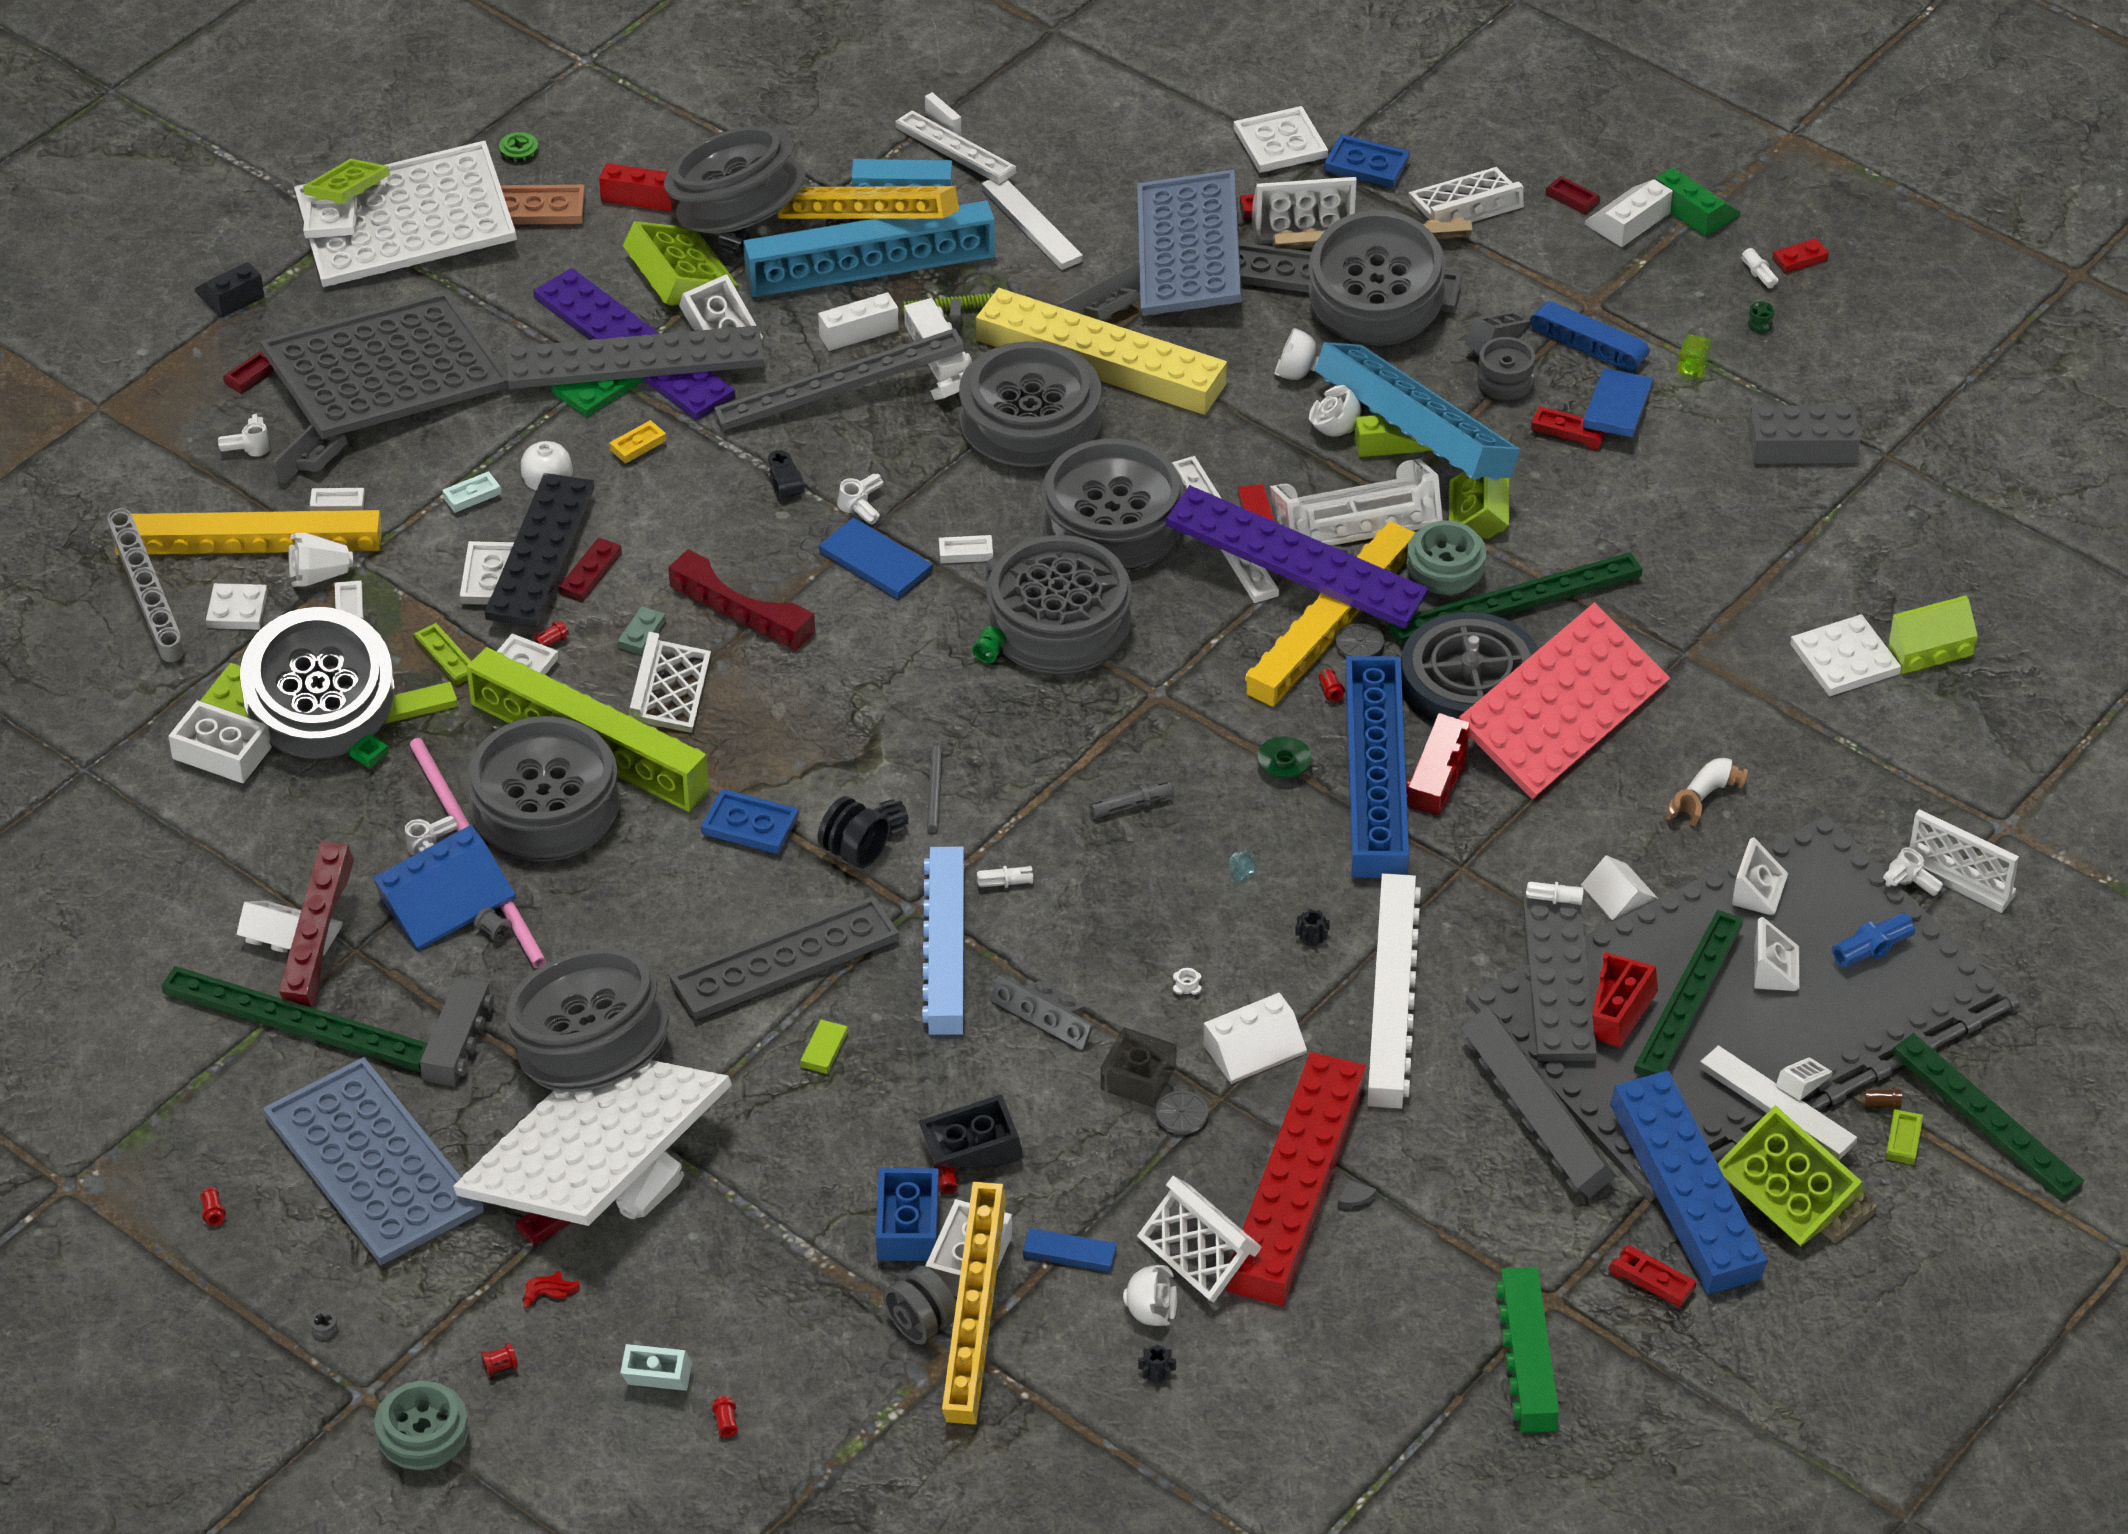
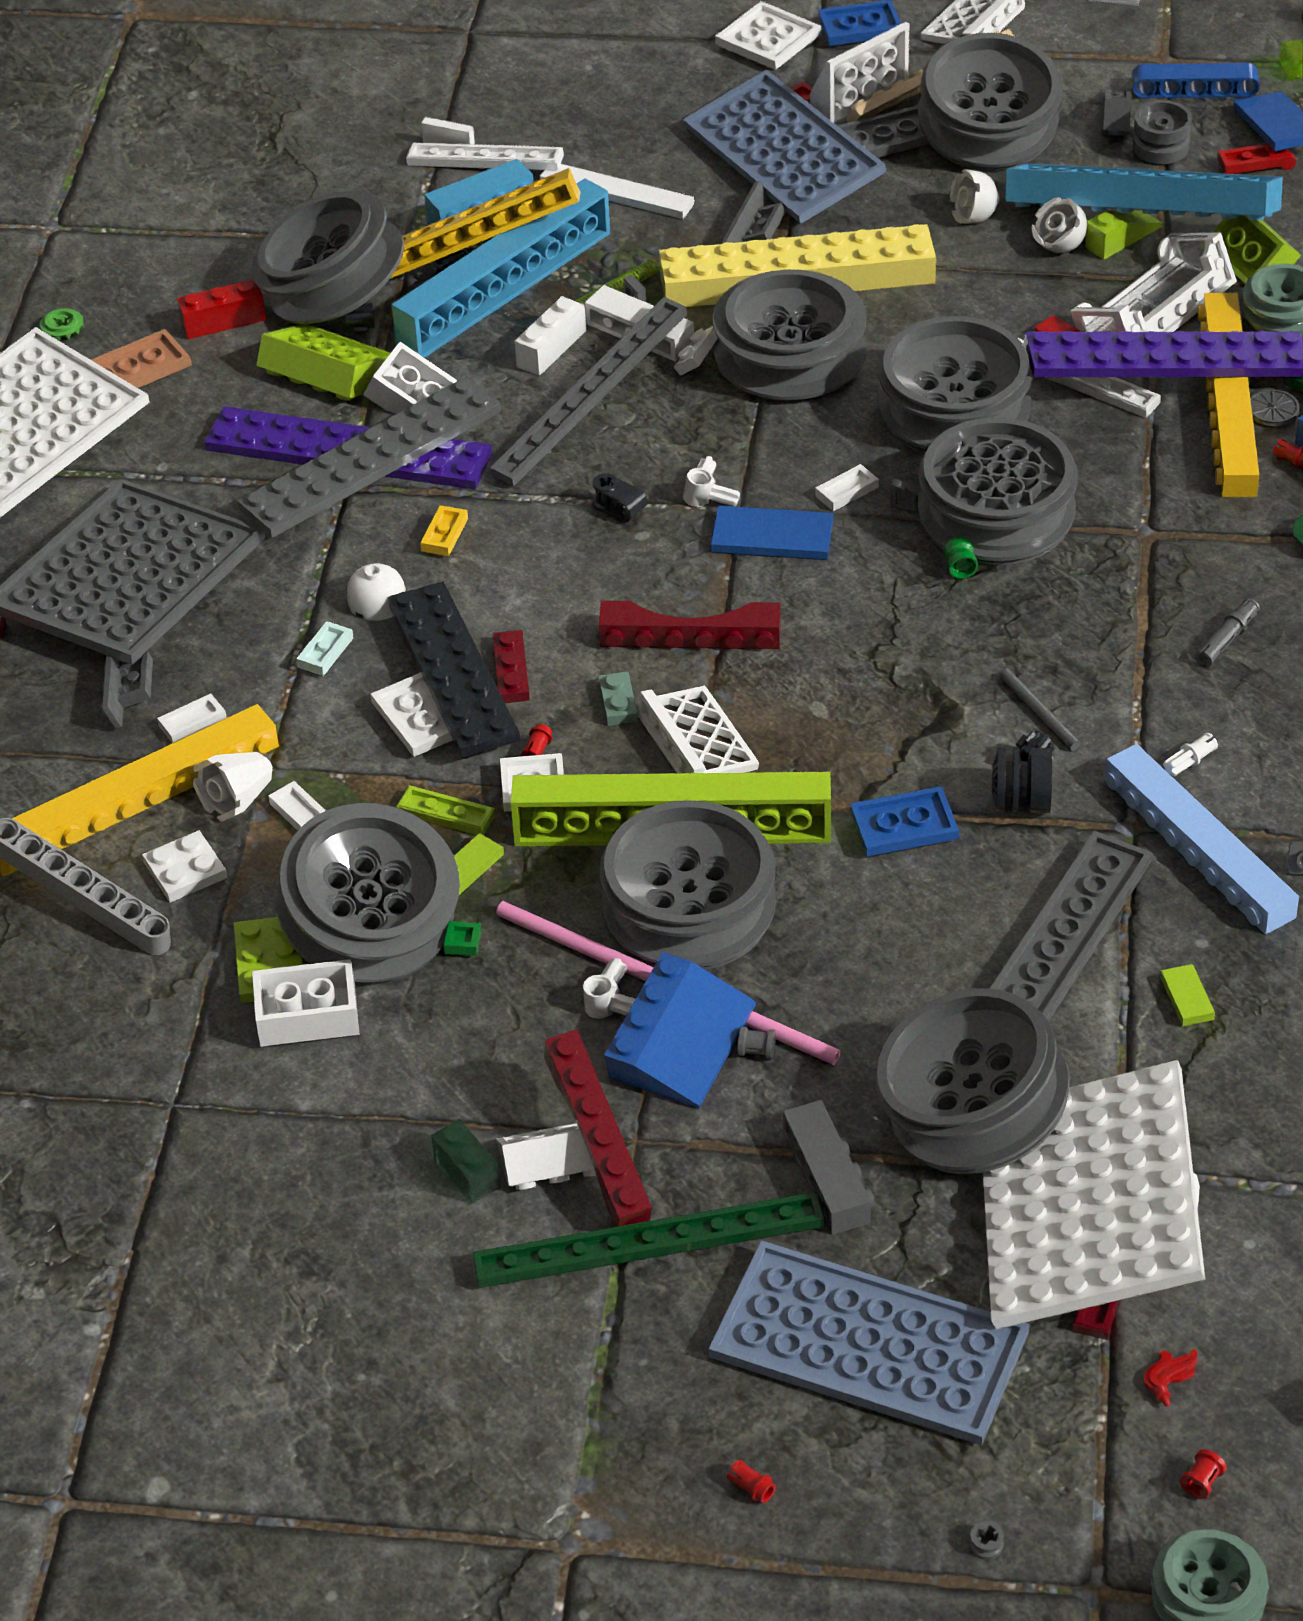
camera: 30 degrees left, 0 degrees up
(225, 903) = (465, 1161): none -> clear green brick
(253, 438) = (51, 699): white axle -> none
(593, 396) = (352, 512): green wing -> none

